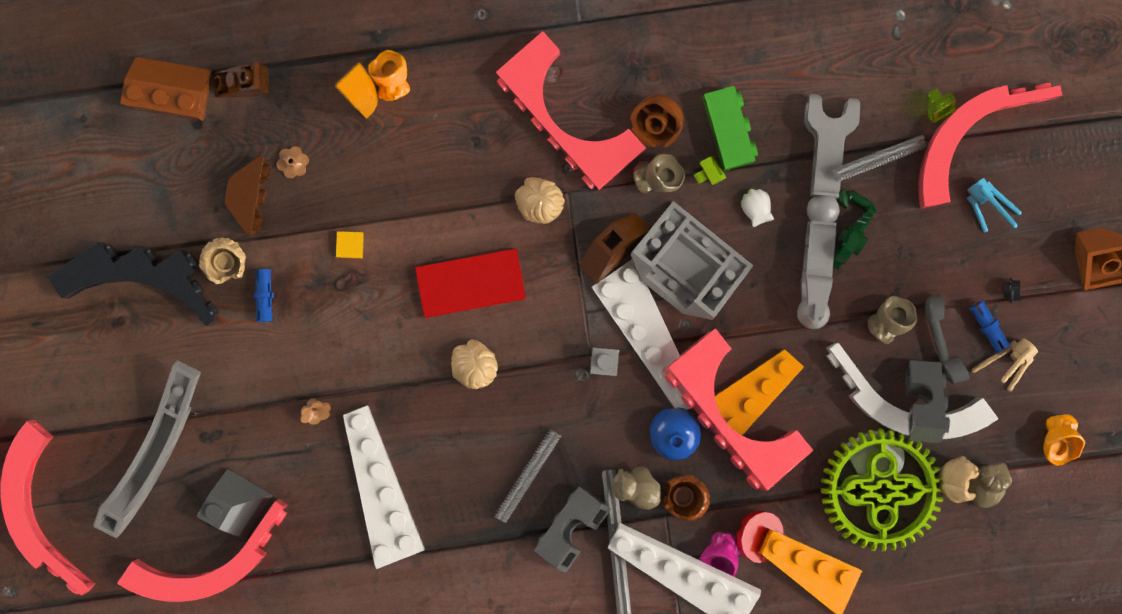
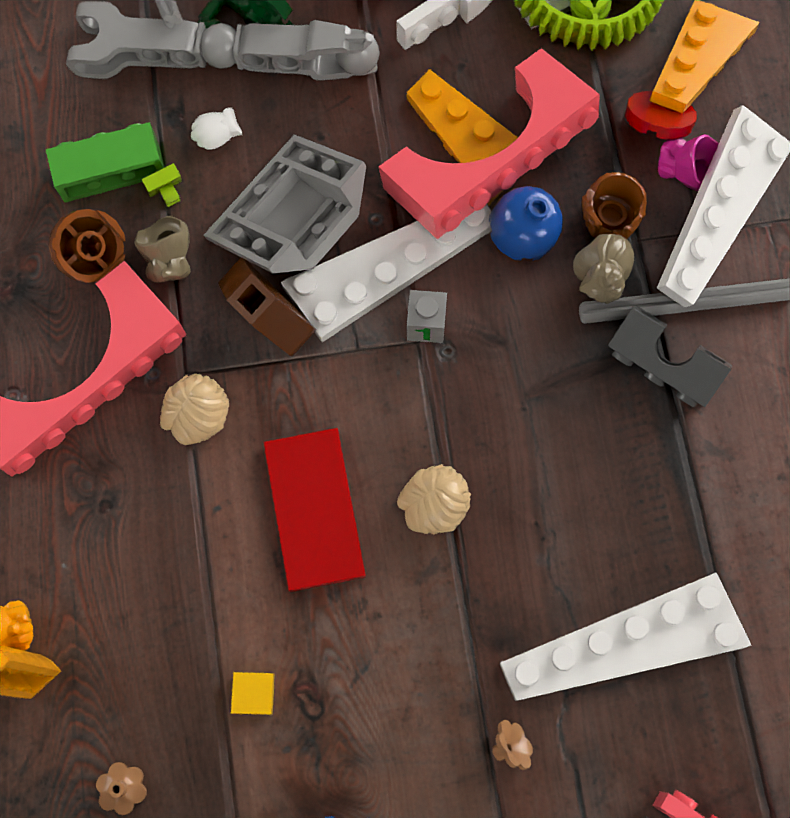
camera: 85 degrees left, 15 degrees down
(527, 478) = (595, 423): light grey axle -> none

